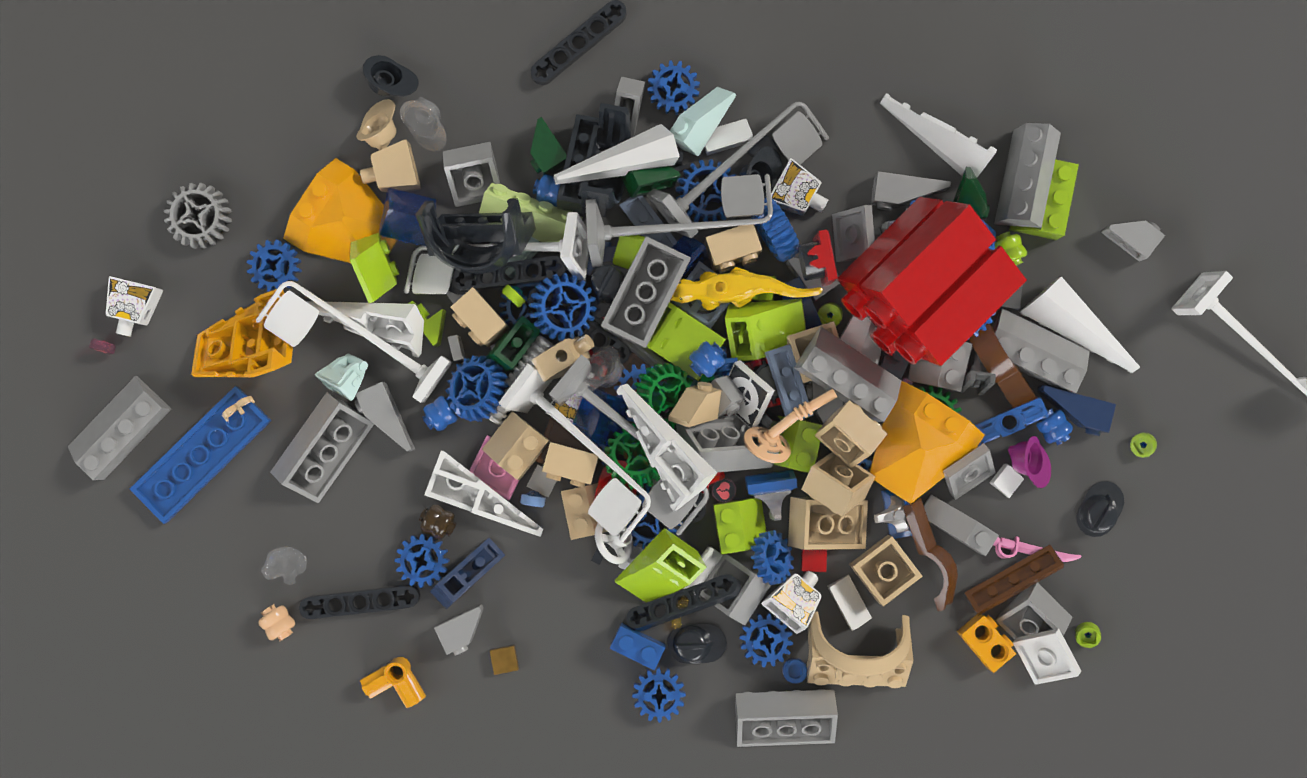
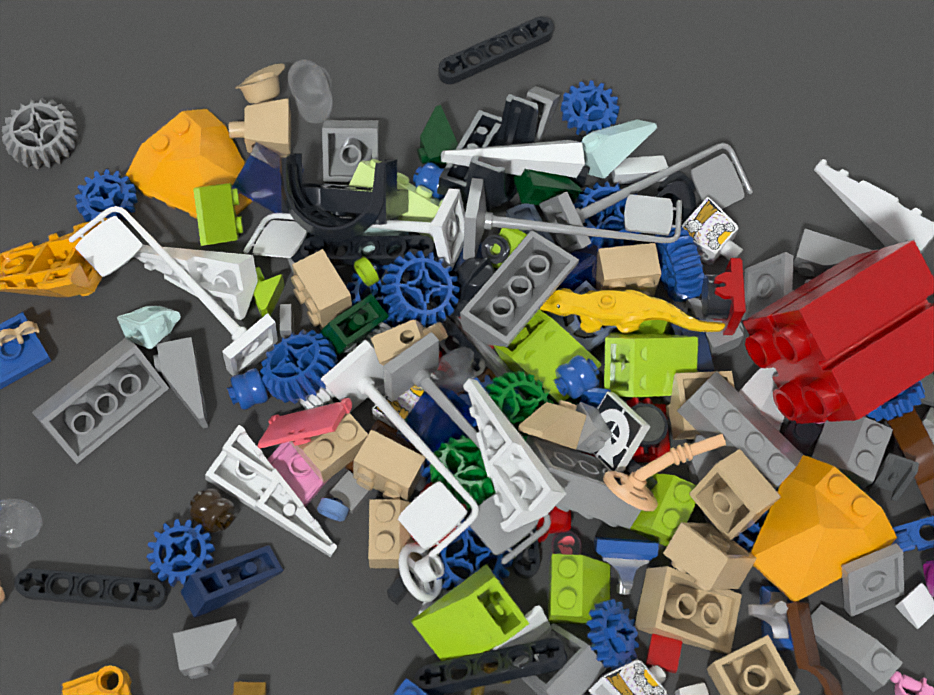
camera: 10 degrees right, 20 degrees down
(389, 77) = (284, 41): black piece -> none
(494, 439) = (304, 424): none -> coral door
(615, 260) = (486, 249): none -> black plate
(786, 378) = (666, 423): sand blue plate -> none
(830, 312) = (729, 365): lime tile -> none

